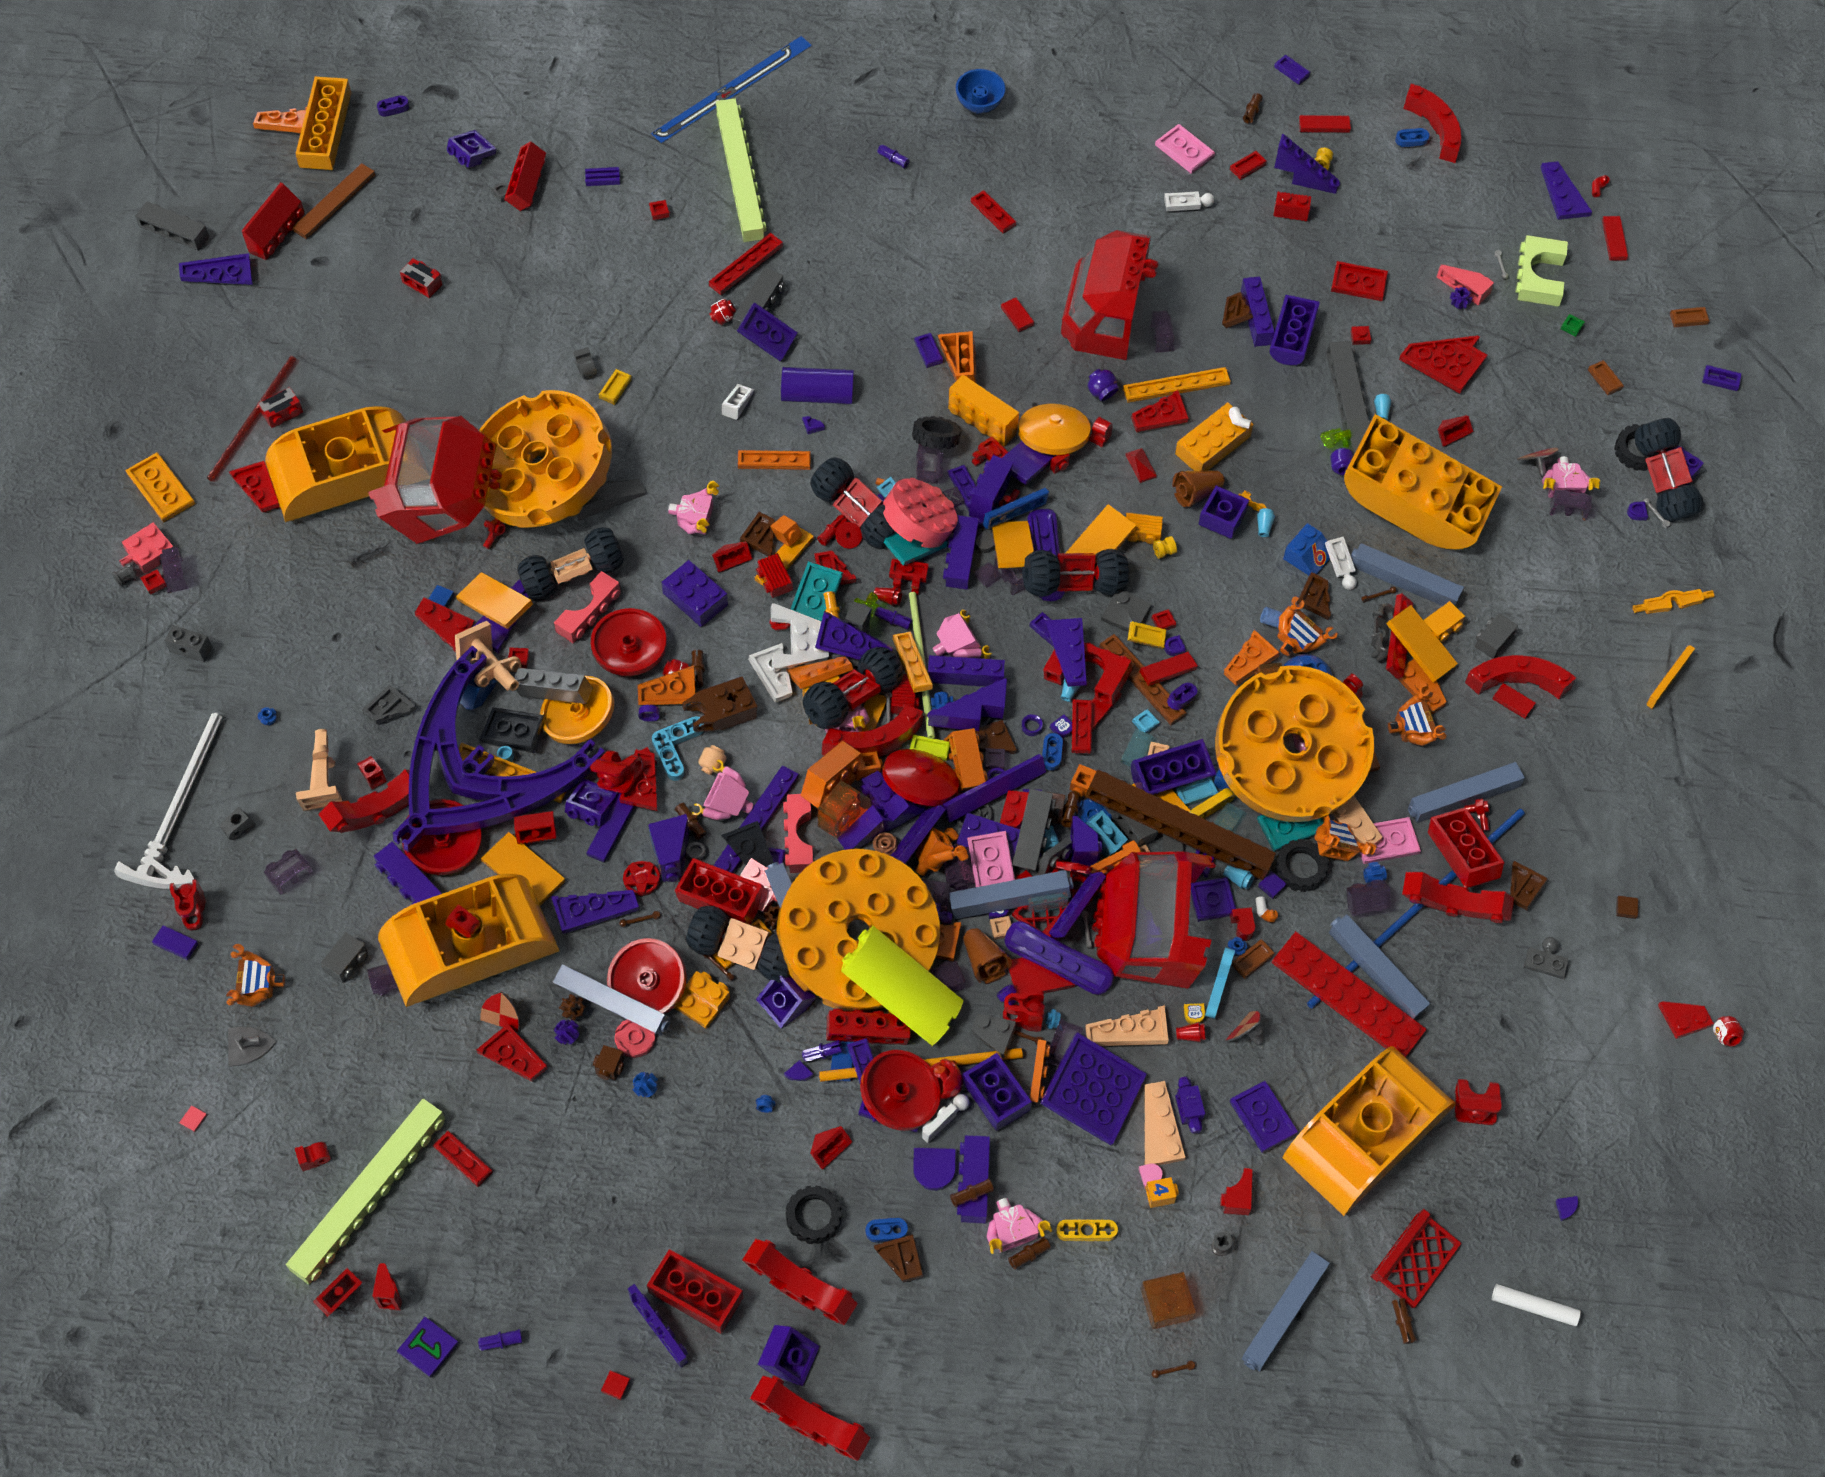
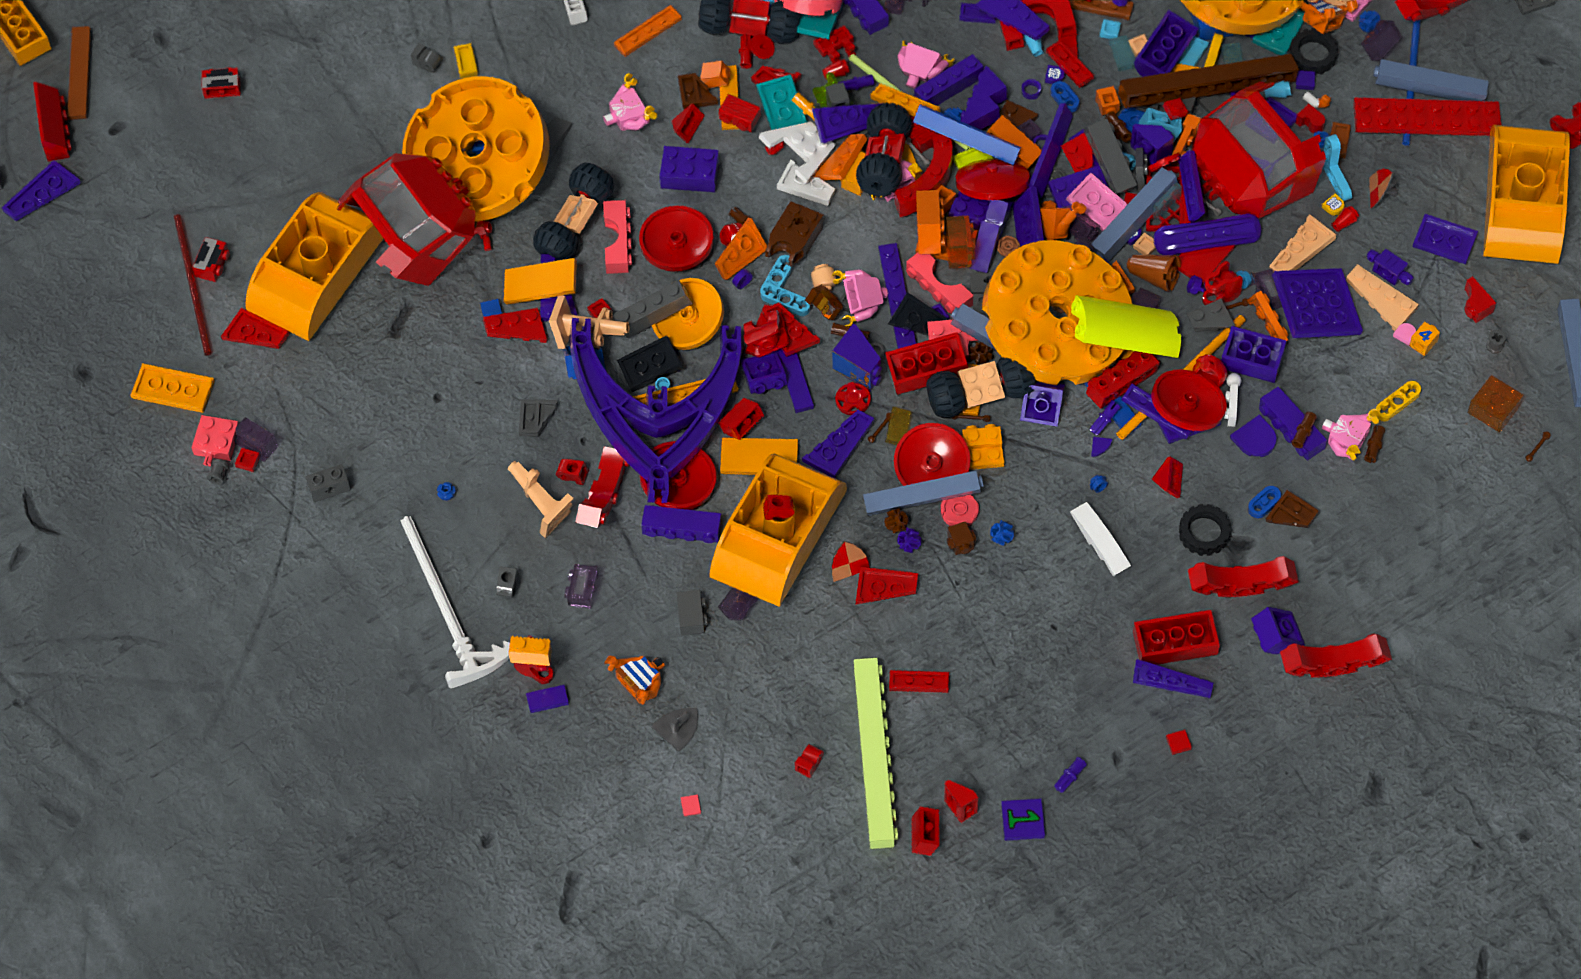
camera: 35 degrees left, 0 degrees up
(176, 892) = (530, 651): none -> light orange brick
(654, 926) = (897, 425): none -> clear yellow tile
(693, 779) = (825, 302): none -> reddish brown leg
(719, 1153) = (1100, 538): none -> white slope
(930, 724) = (967, 134): none -> tile
(1126, 828) = (1175, 109): none -> red plate

